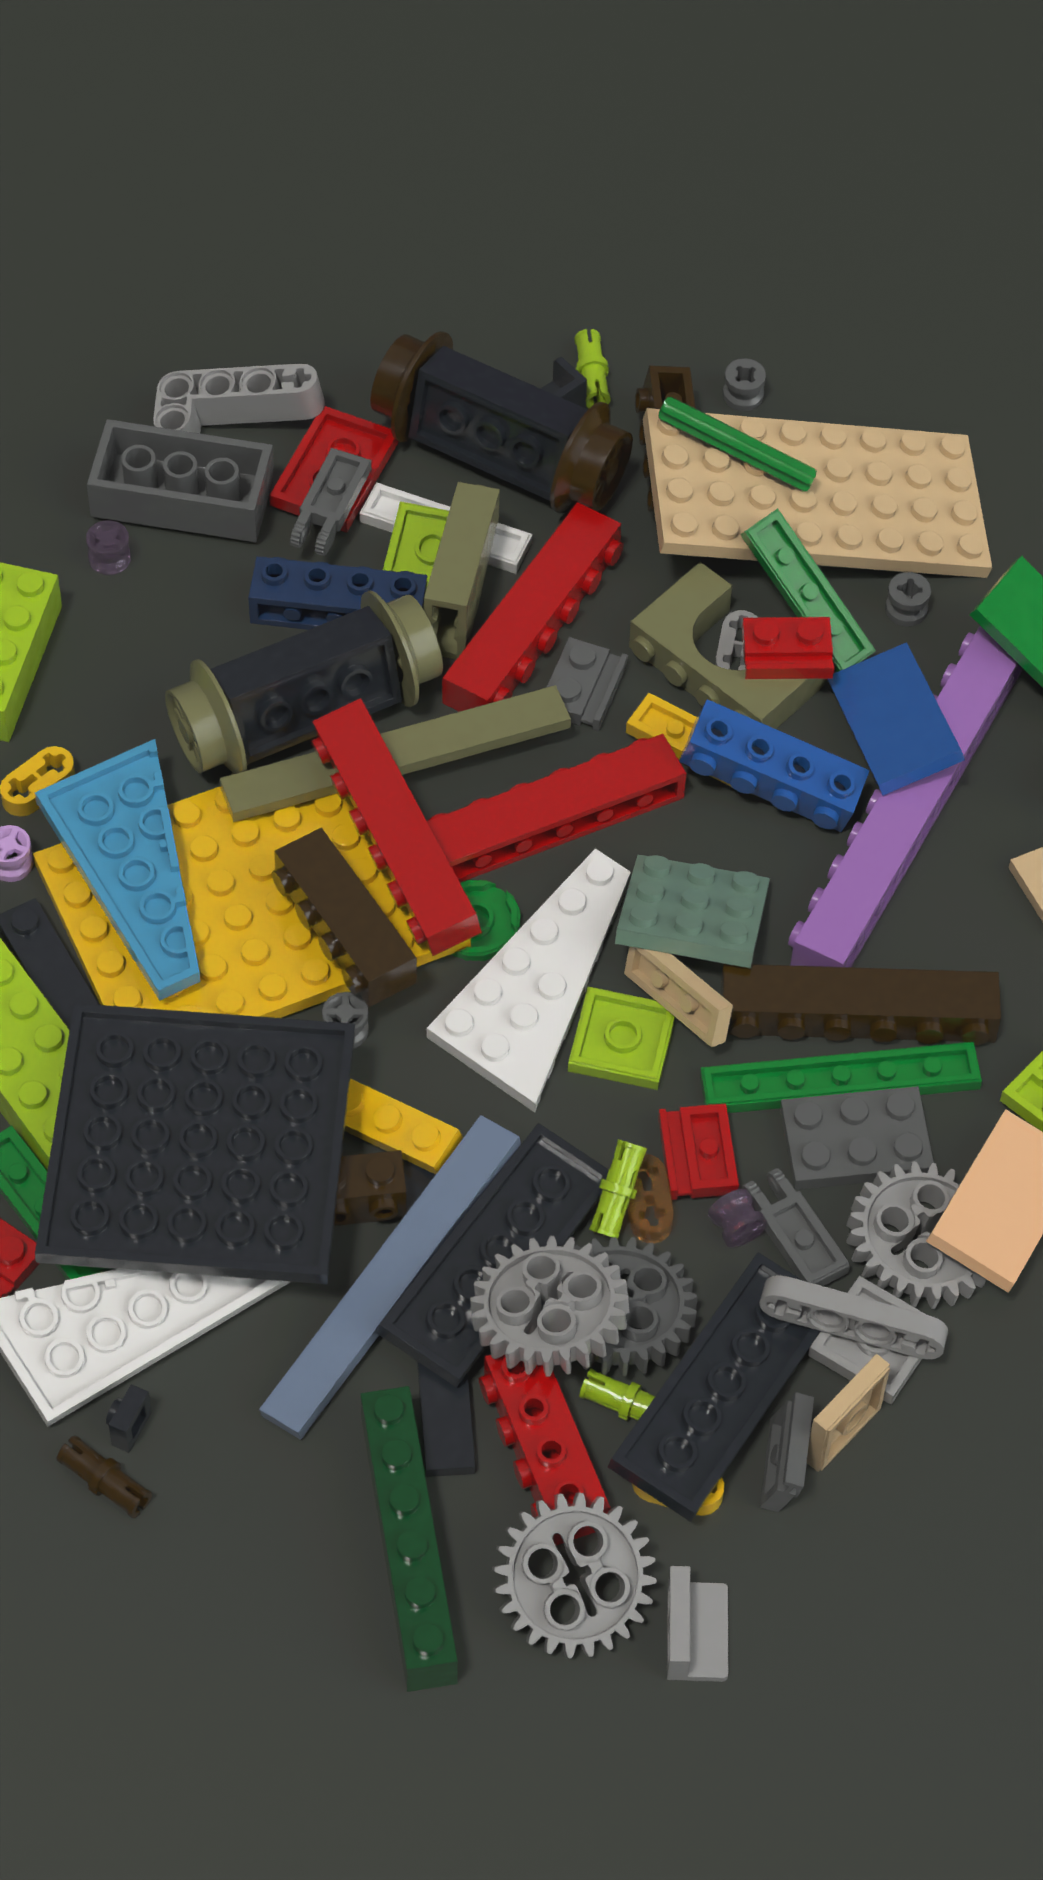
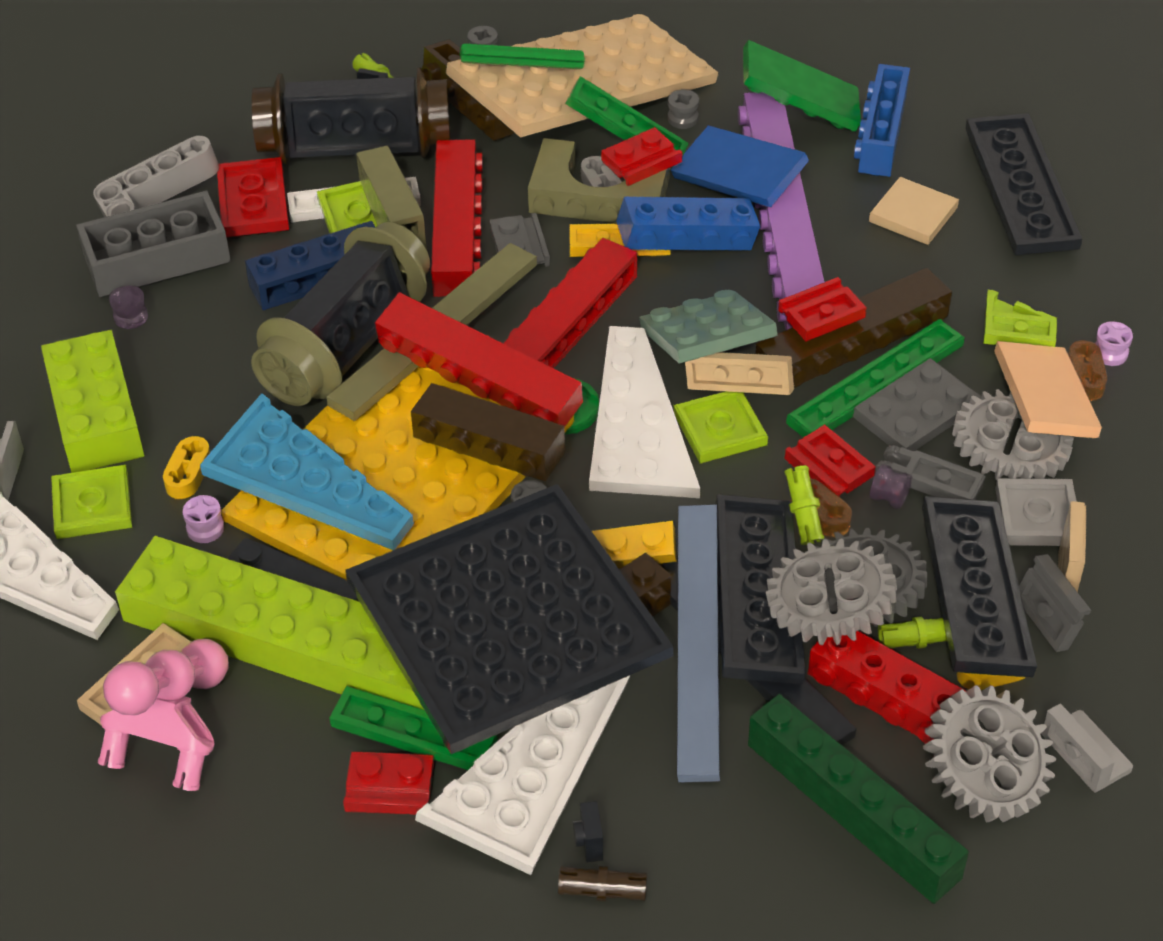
camera: 30 degrees left, 10 degrees down
(330, 498) = (269, 206): dark grey hinge -> none
(822, 963) = (822, 309): none -> red plate
(853, 1317) = (983, 507): light grey beam -> none

